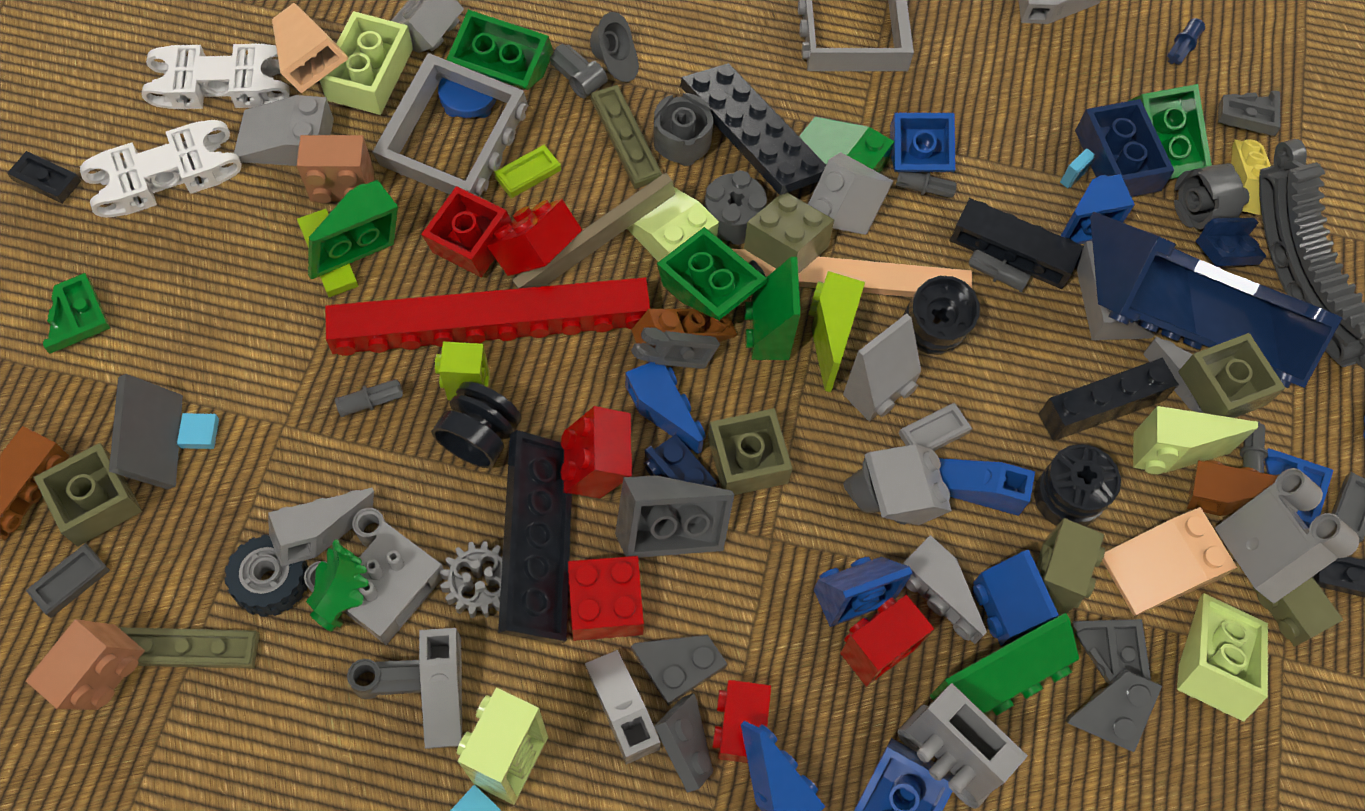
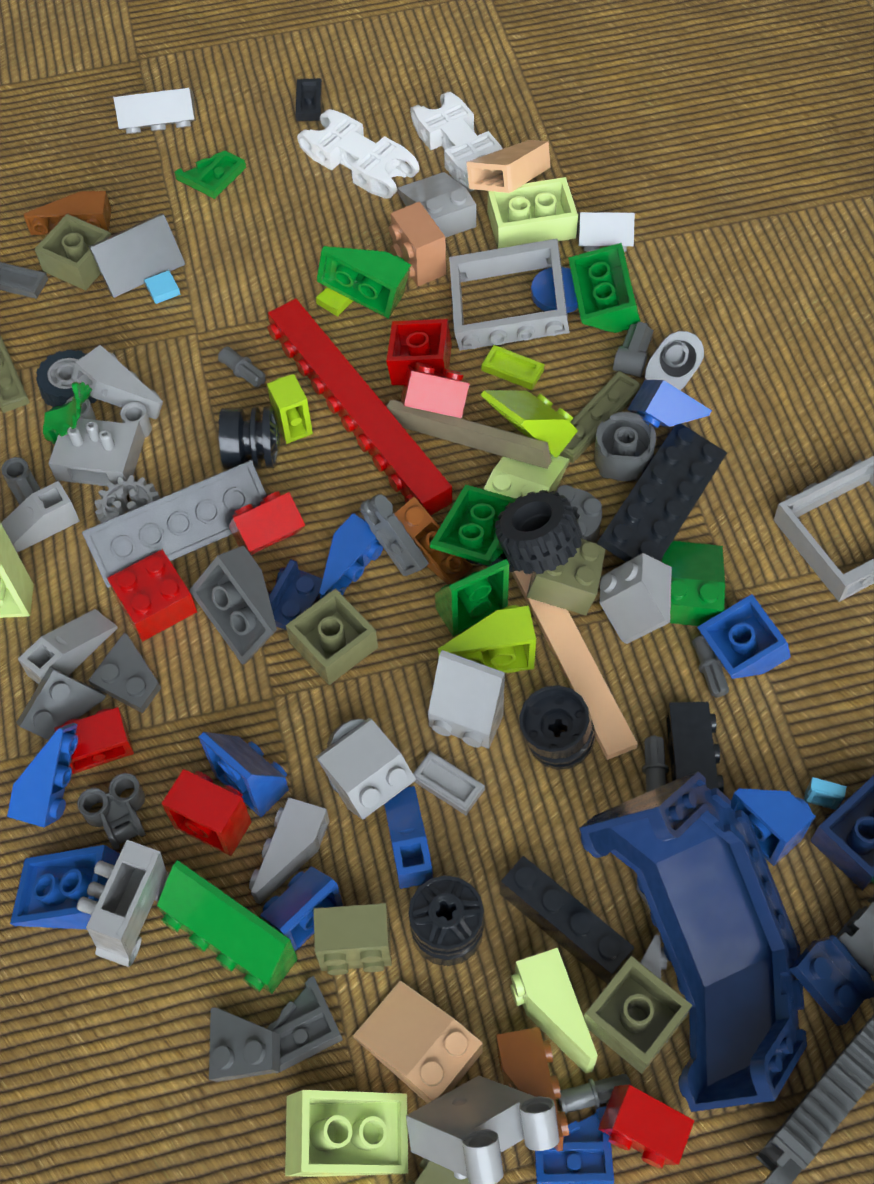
camera: 70 degrees right, 5 degrees down
(618, 175) = (534, 417): none -> lime slope
(665, 75) = (665, 405): none -> slope
(754, 202) = (538, 532): none -> black tyre
(840, 731) = (117, 813): none -> dark grey piece
(1301, 427) = (645, 1125): none -> red brick

